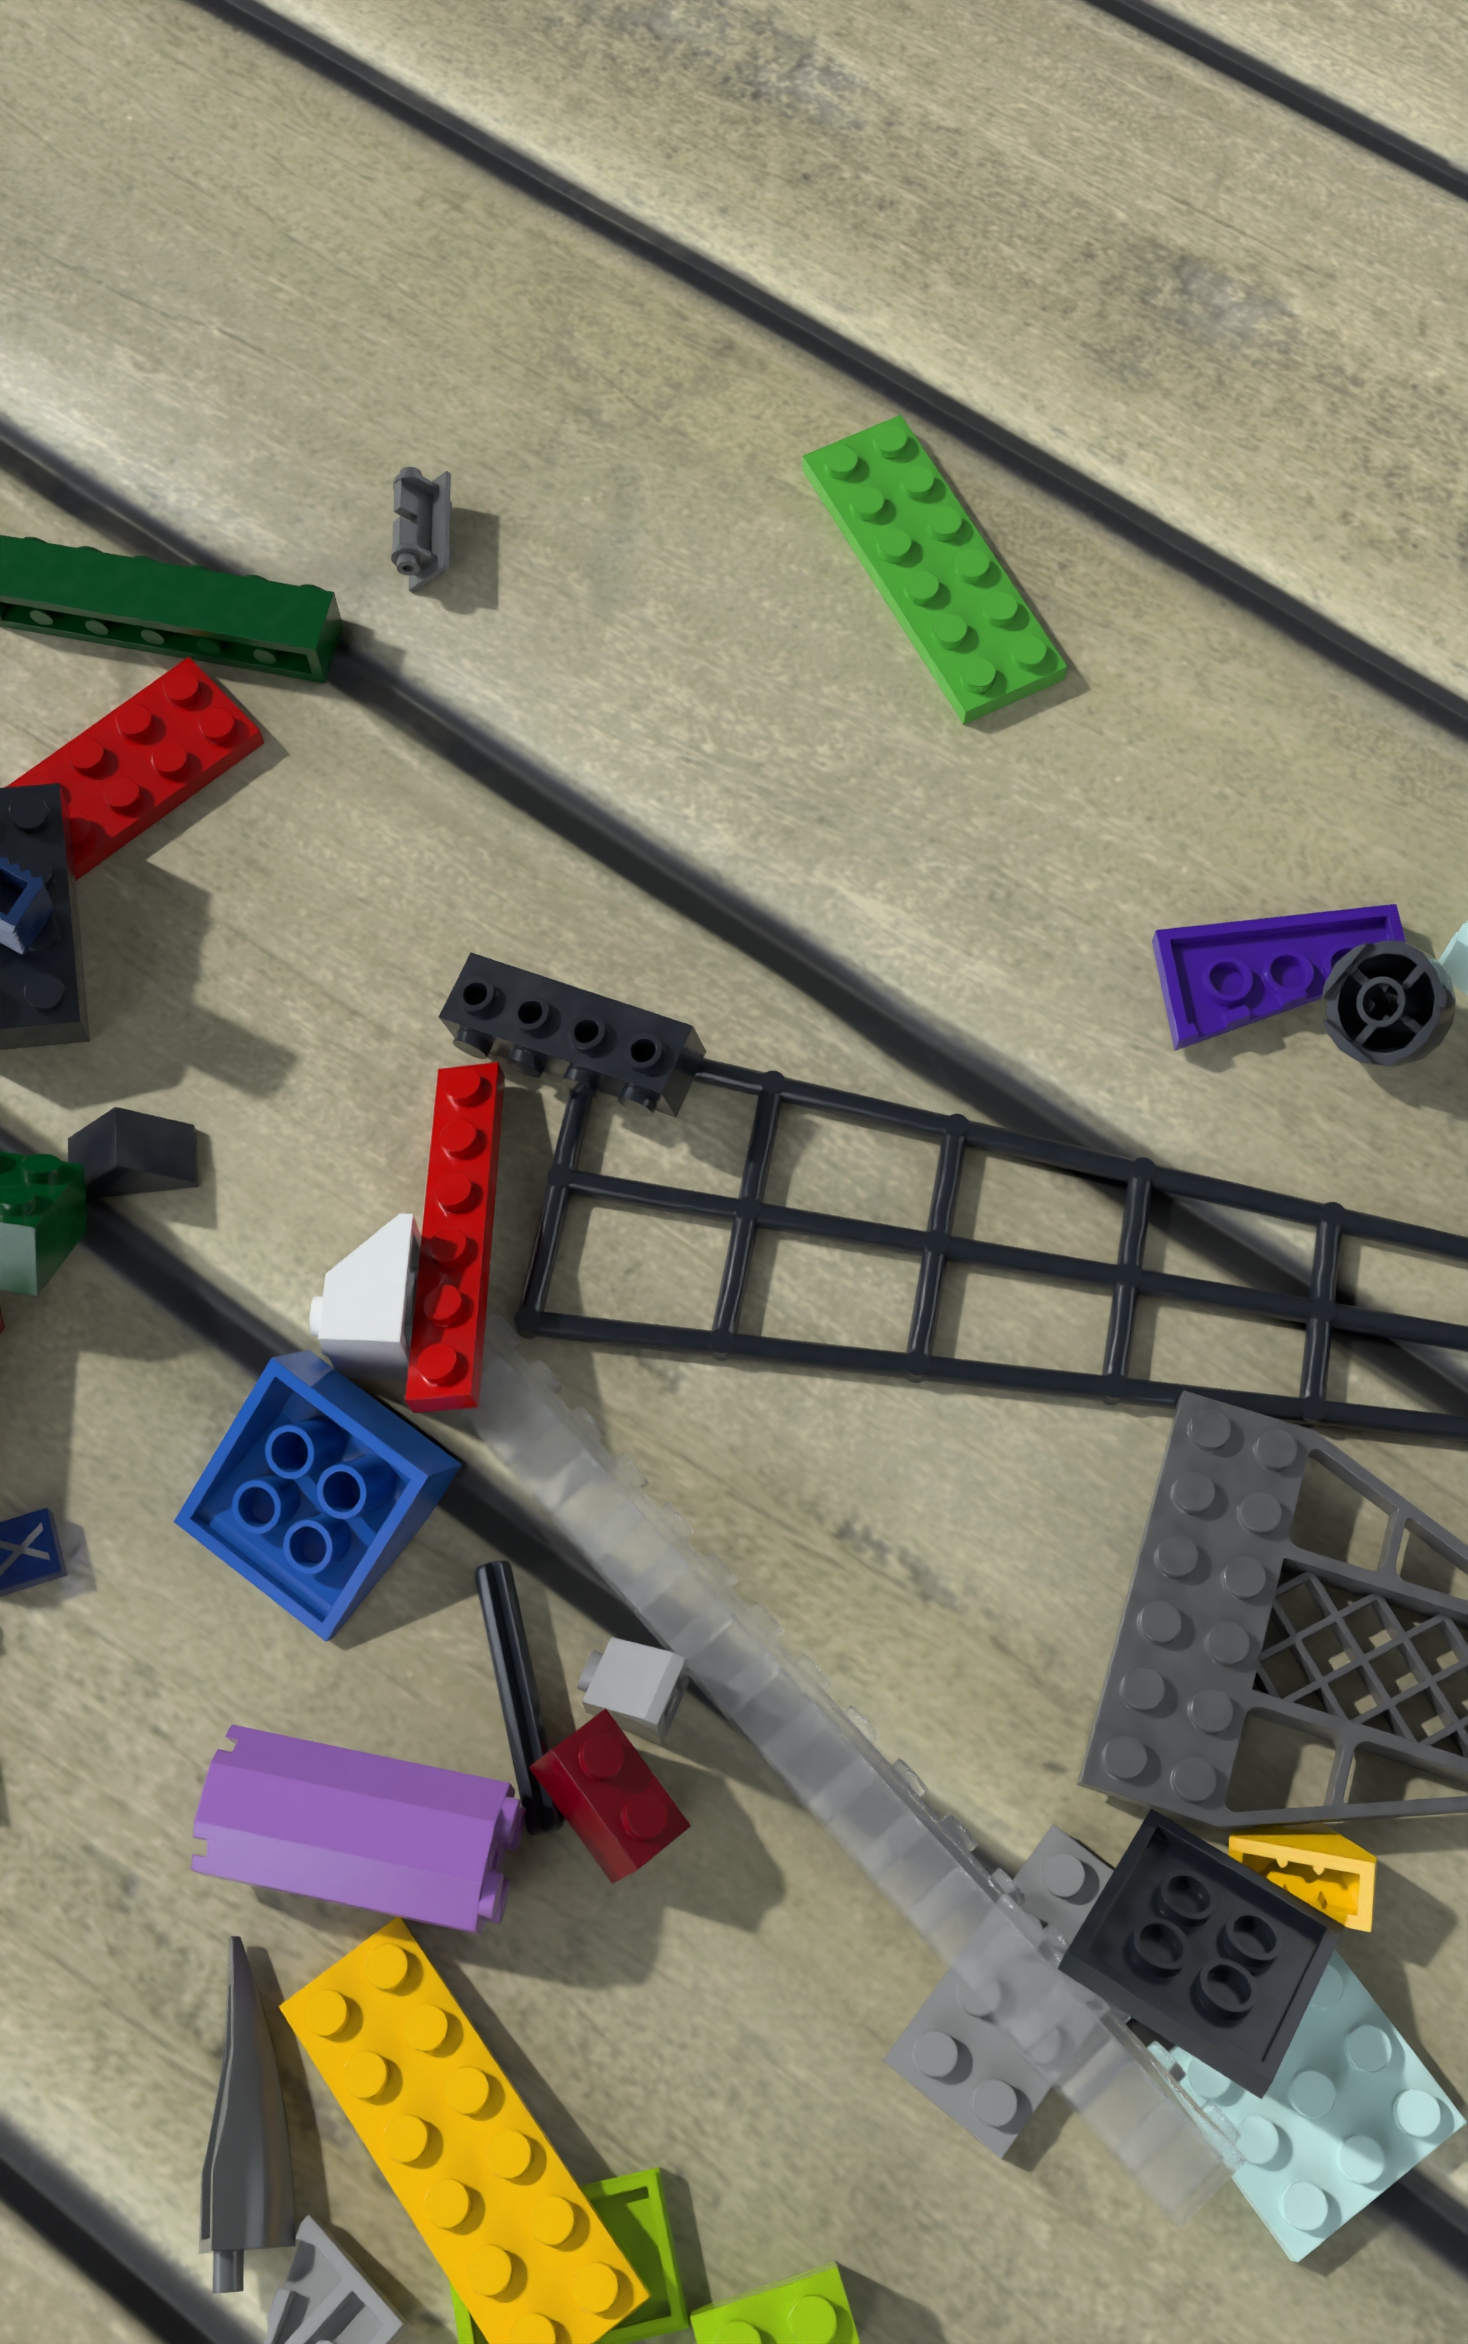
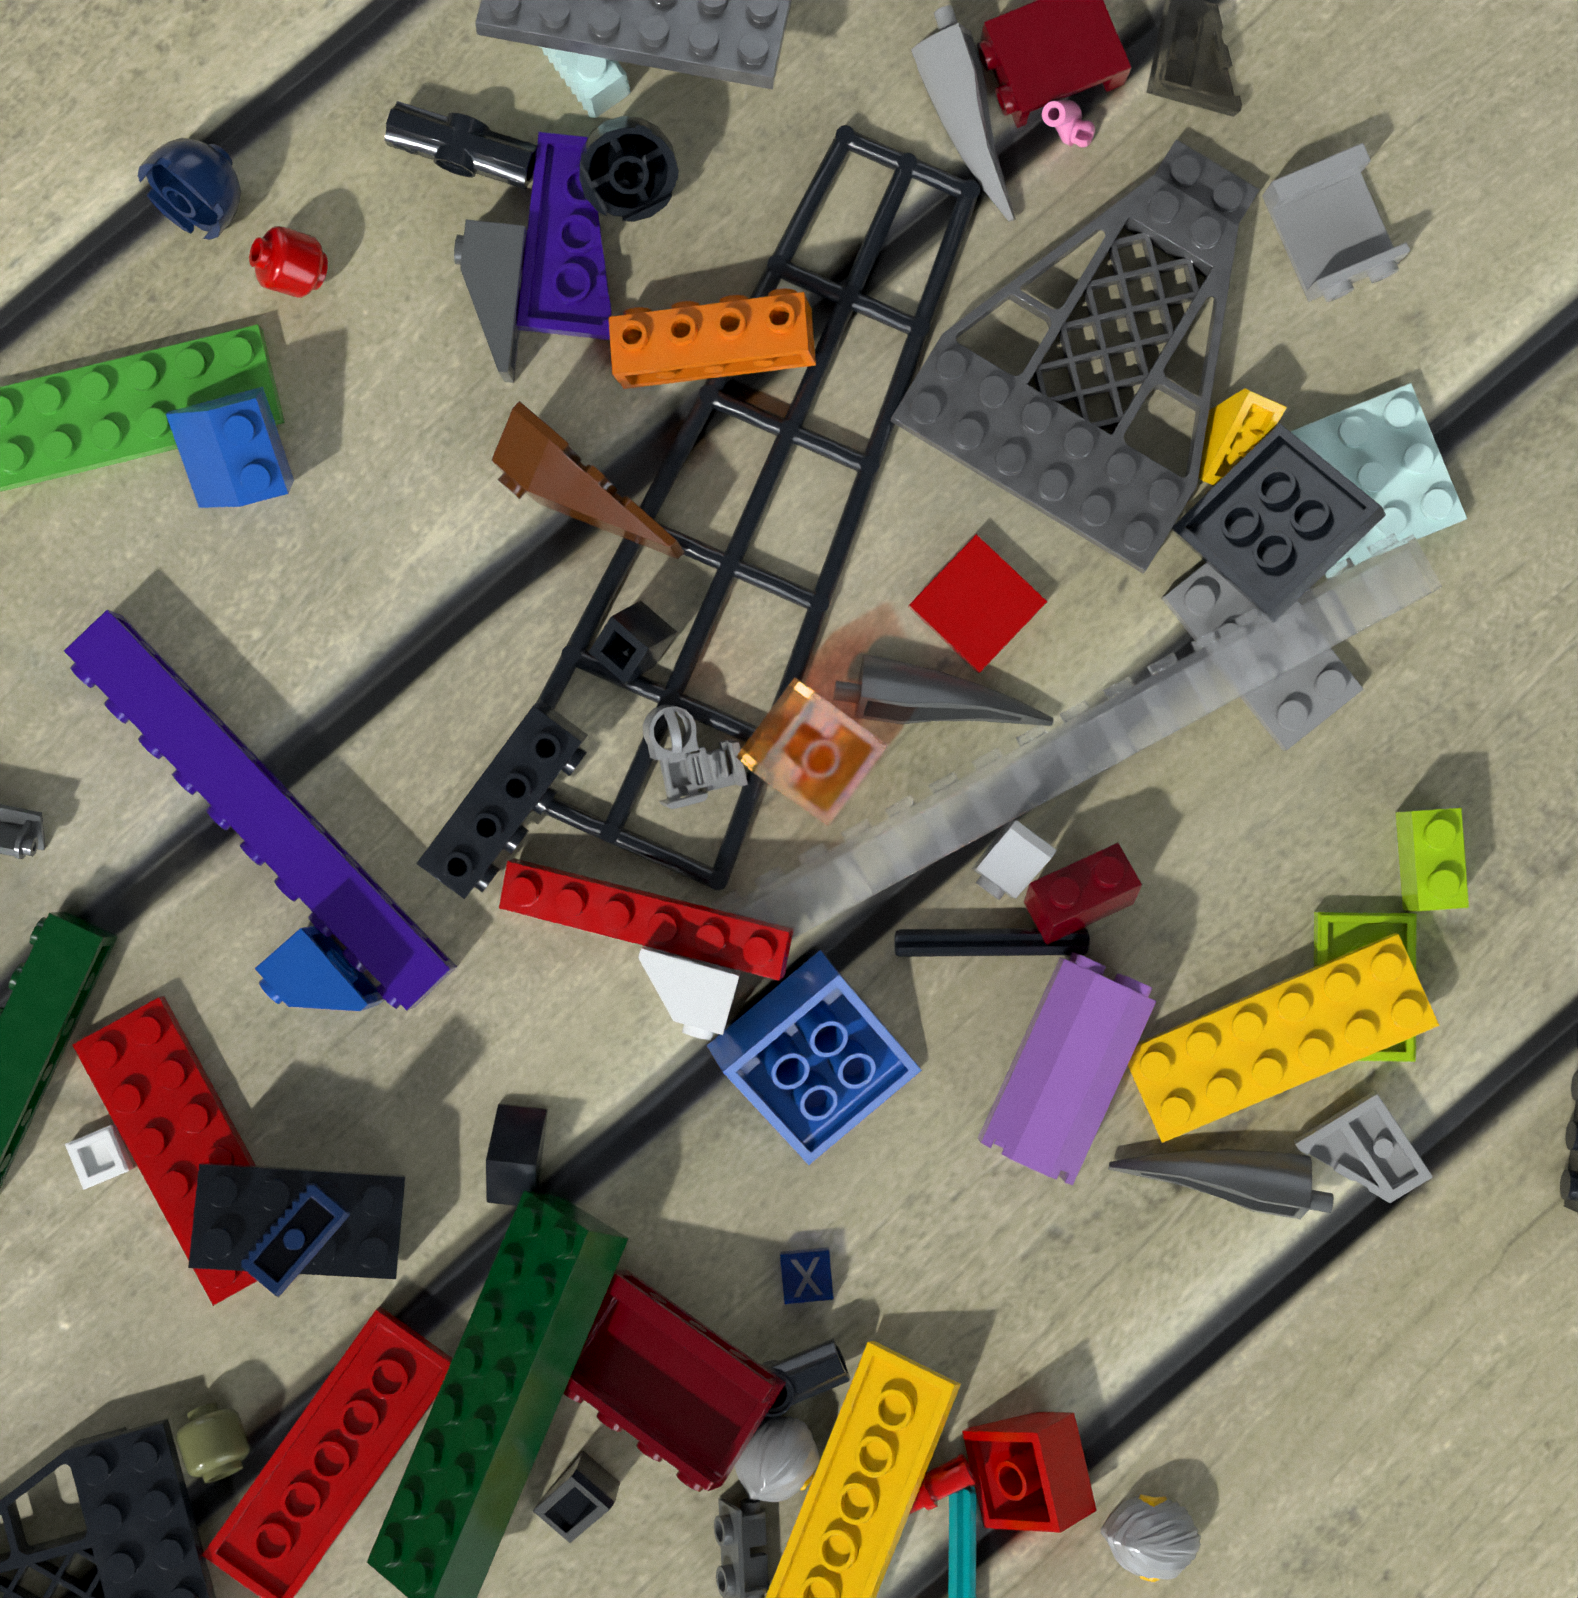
camera: 75 degrees left, 20 degrees up
(61, 712) = (99, 1156): none -> white tile
(316, 875) = (316, 975): none -> blue slope
(492, 796) = (260, 809): none -> dark purple brick
(659, 1253) = (688, 772): none -> light grey piece
(718, 1385) = (811, 751): none -> clear orange brick
(805, 1141) = (632, 641): none -> black brick
(830, 1517) = (915, 694): none -> dark grey piece
(916, 668) = (231, 450): none -> blue slope
(972, 1570) = (977, 604): none -> red tile
(987, 1010) = (550, 472): none -> reddish brown wedge
(1149, 676) = (288, 262): none -> red head
(1205, 565) = (193, 185): none -> dark blue cylinder
(1208, 887) = (492, 269): none -> dark grey slope
(1213, 1152) = (712, 339): none -> orange brick
(1349, 825) = (461, 145): none -> black piece

